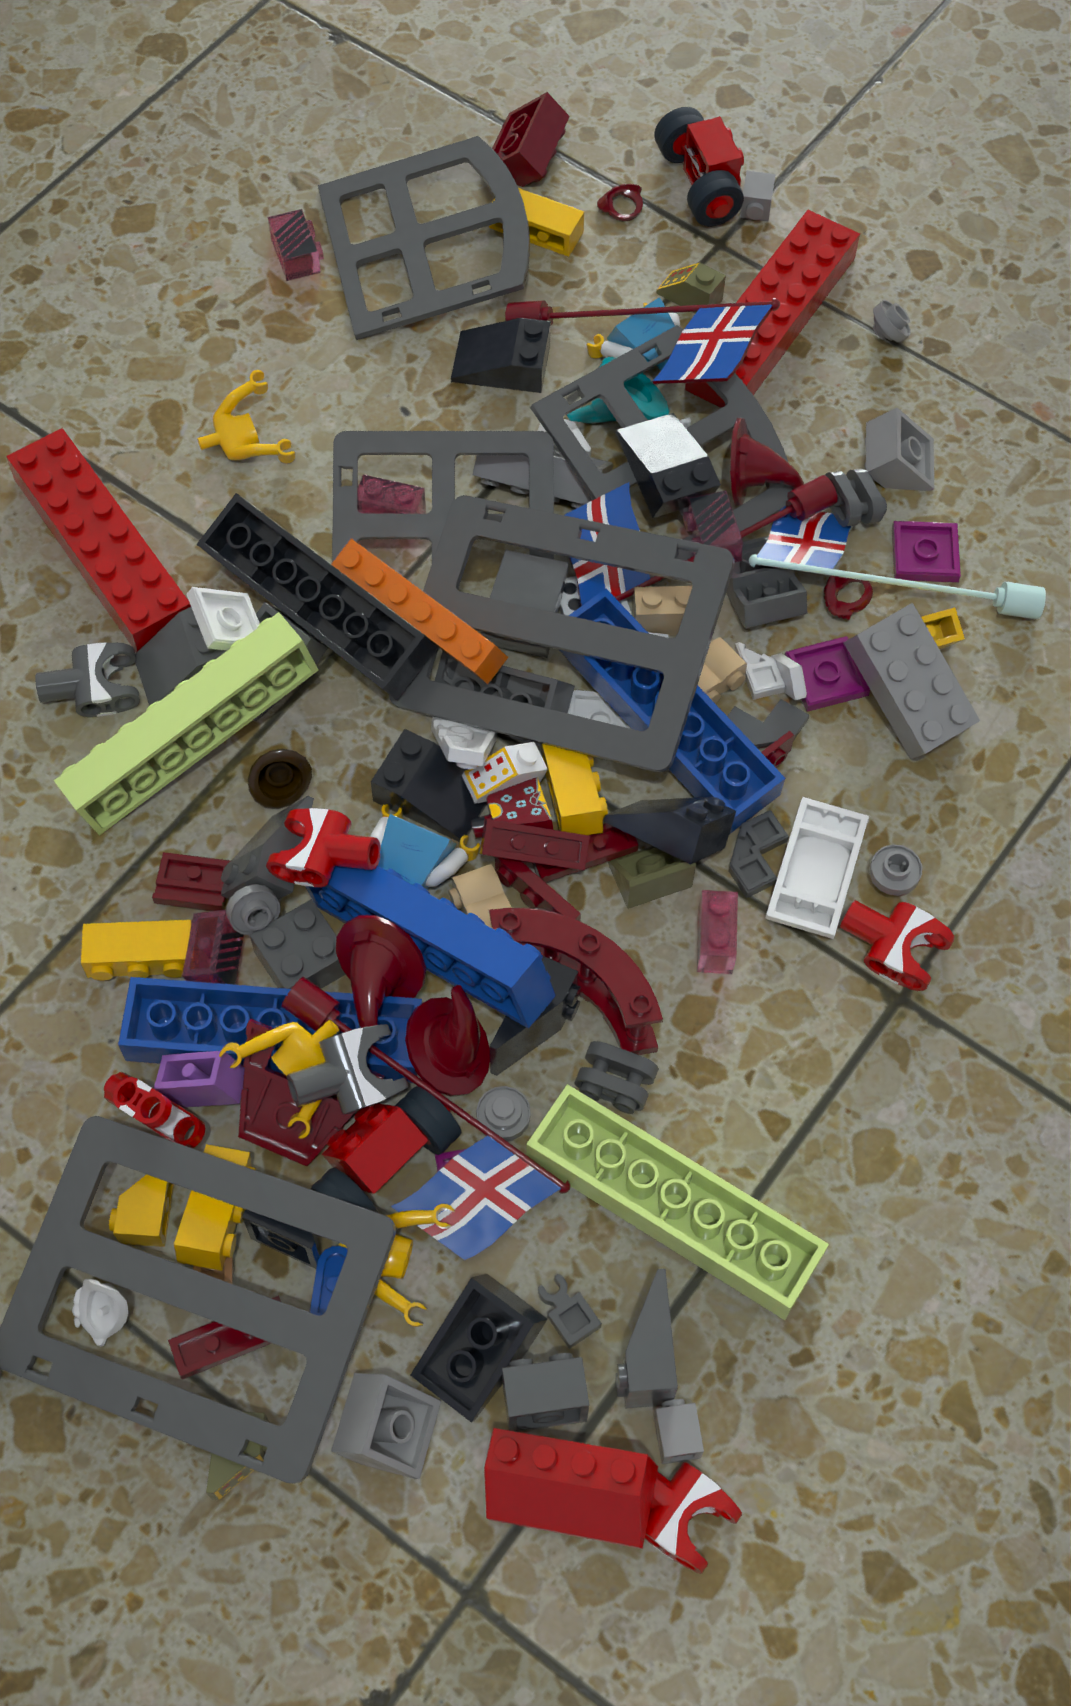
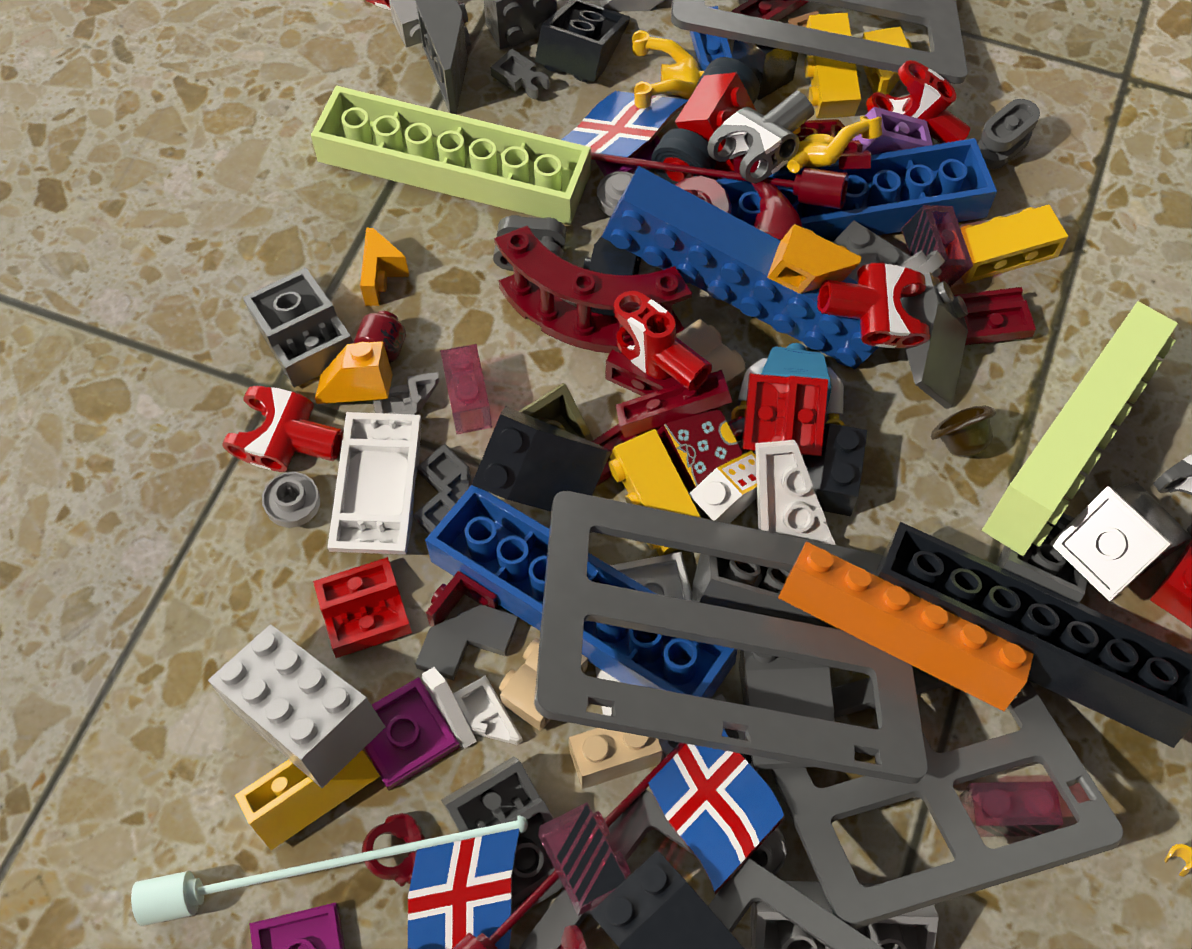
camera: 165 degrees right, 0 degrees up
(71, 1063) = (1008, 132): none -> dark grey brick
(375, 880) = (808, 260): none -> light orange slope
(439, 805) = (785, 410): none -> red slope
(535, 873) = (655, 343): none -> red connector
(775, 1096) = (379, 262): none -> light orange slope
(778, 948) = (408, 397): none -> light grey slope
(790, 1005) = (382, 328): none -> dark red head
(823, 968) = (356, 374): none -> light orange slope
(846, 772) = (362, 607): none -> red slope
(868, 1048) = (298, 325): none -> dark grey slope

